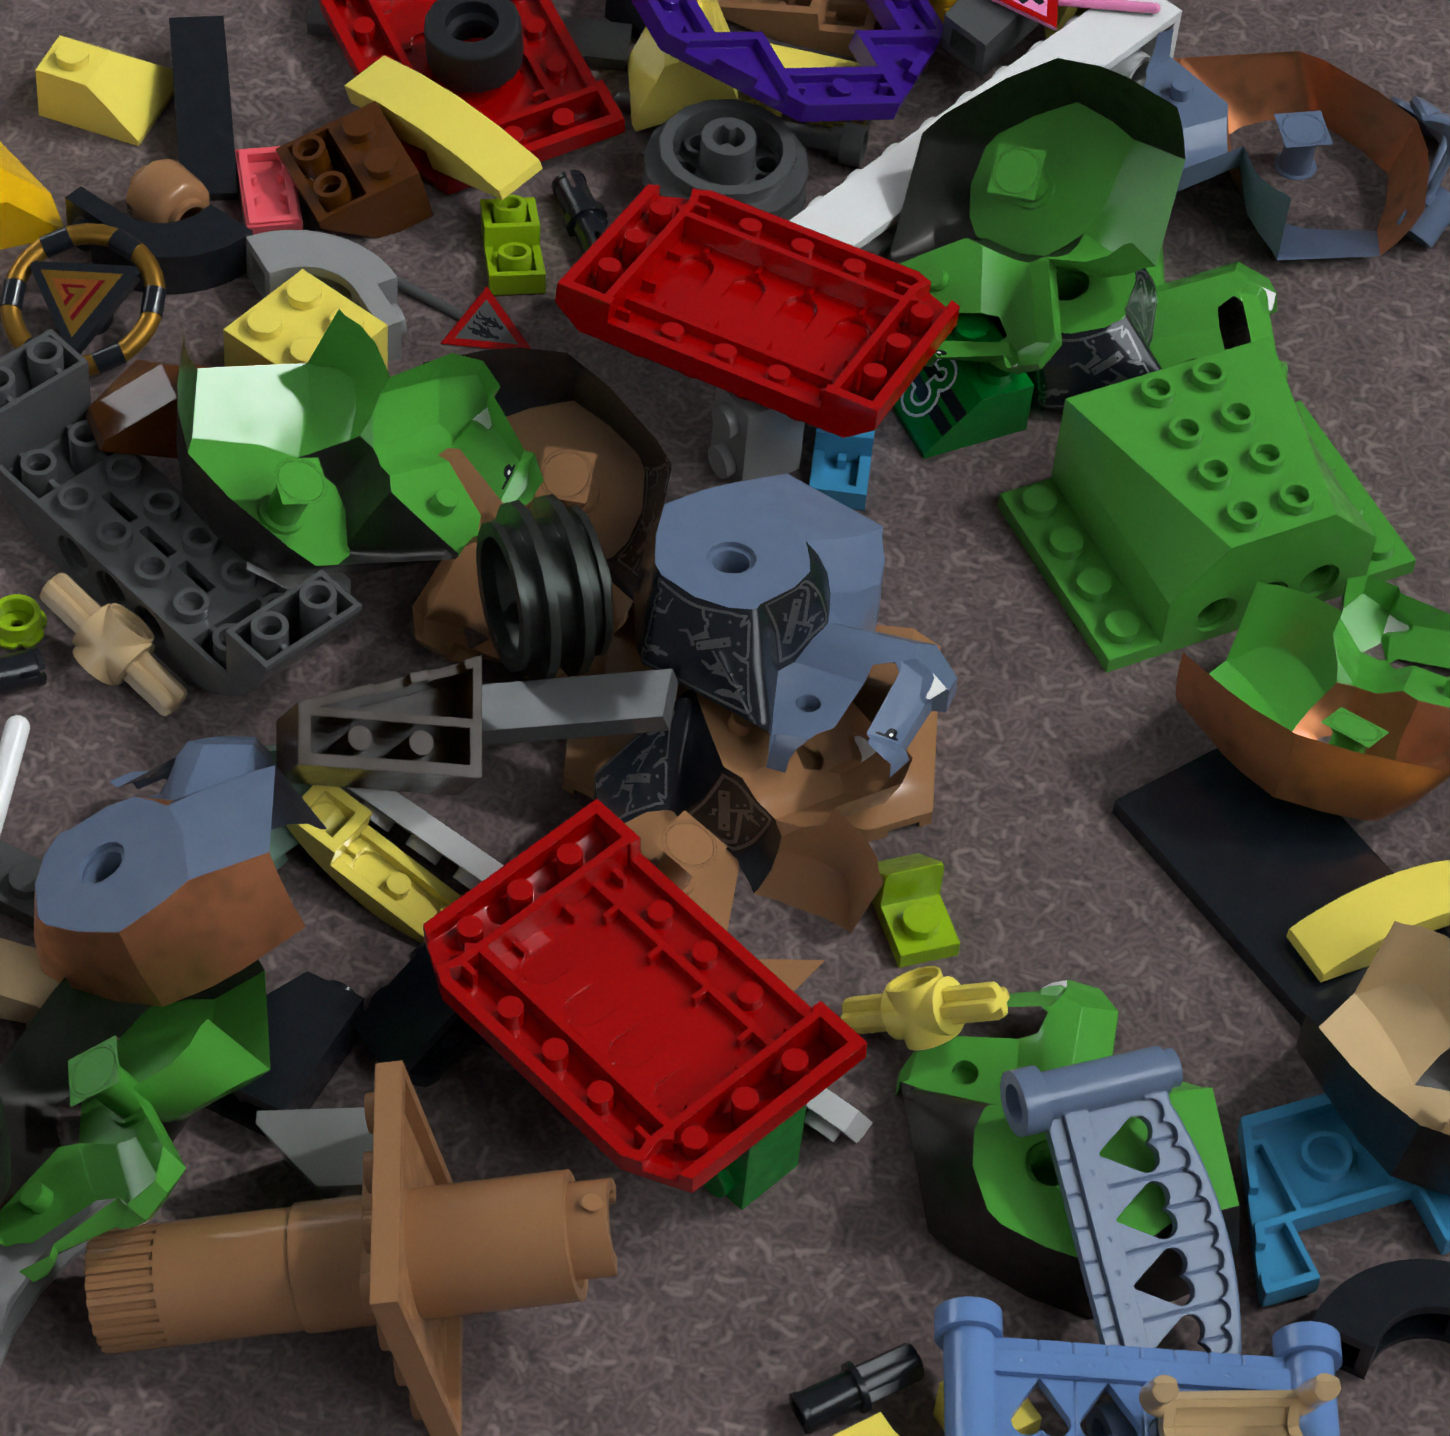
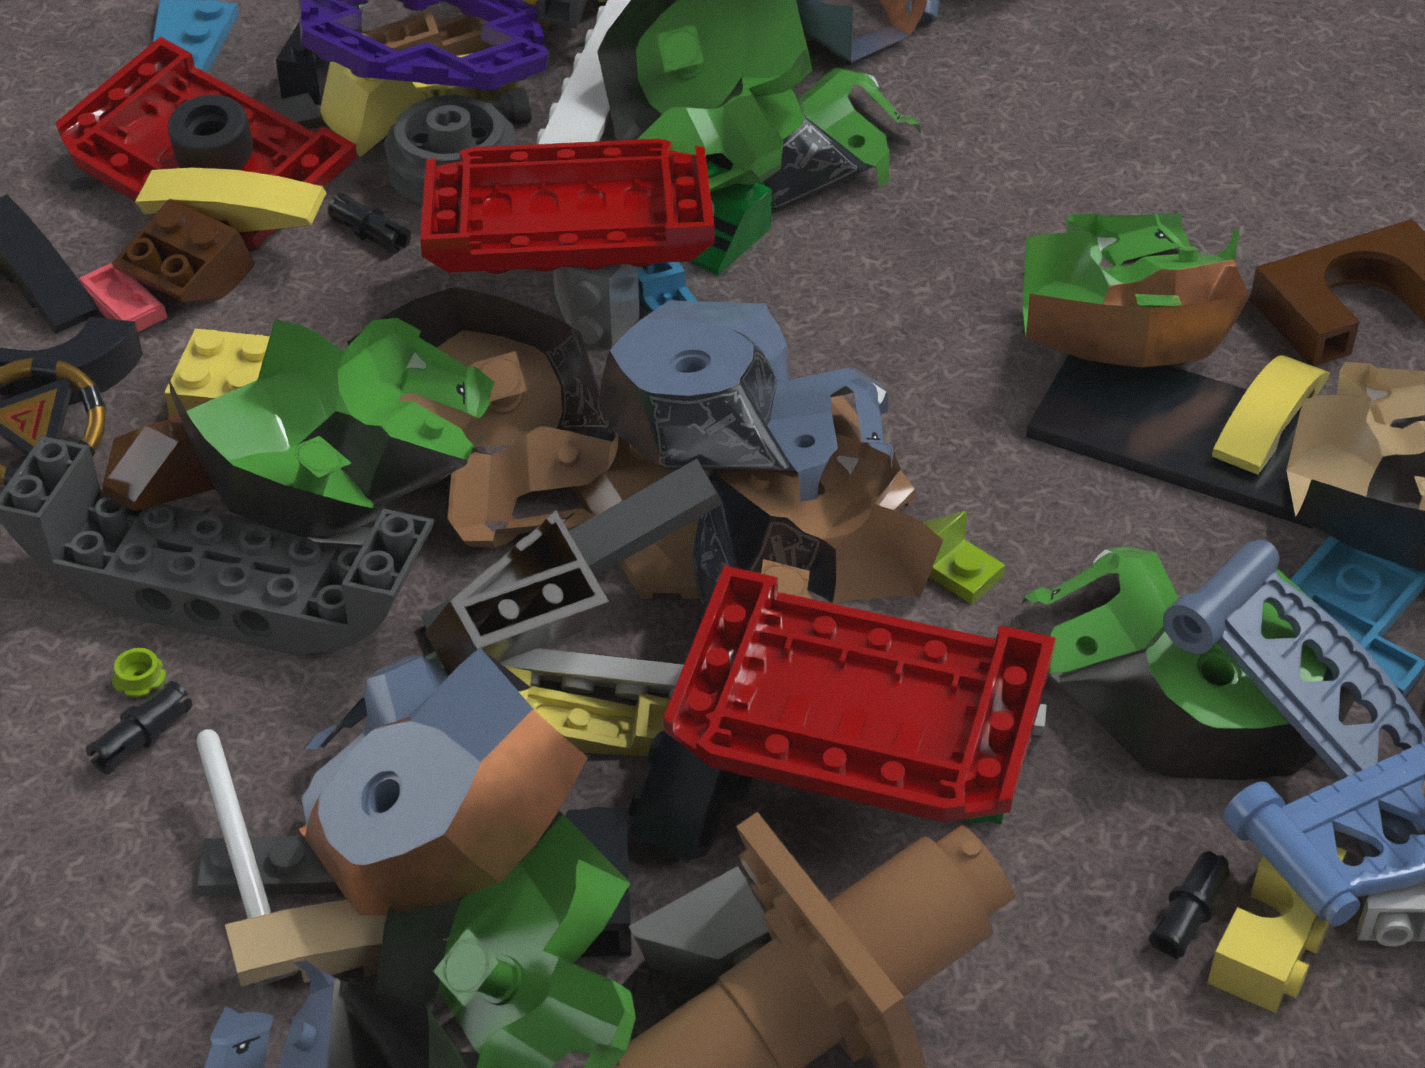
camera: 25 degrees left, 5 degrees down
(113, 644) = (232, 650): tan axle -> none
(165, 193) = (46, 324): medium nougat head -> none
(337, 262) = (166, 333): light grey arch -> none
(481, 326) = (341, 320): piece -> none
(512, 245) = (326, 260): lime slope -> none
(544, 588) = (558, 448): pearl dark grey wheel -> none
(925, 1008) = (1043, 605): light yellow axle -> none
(1189, 495) = (929, 220): bright green wedge -> none

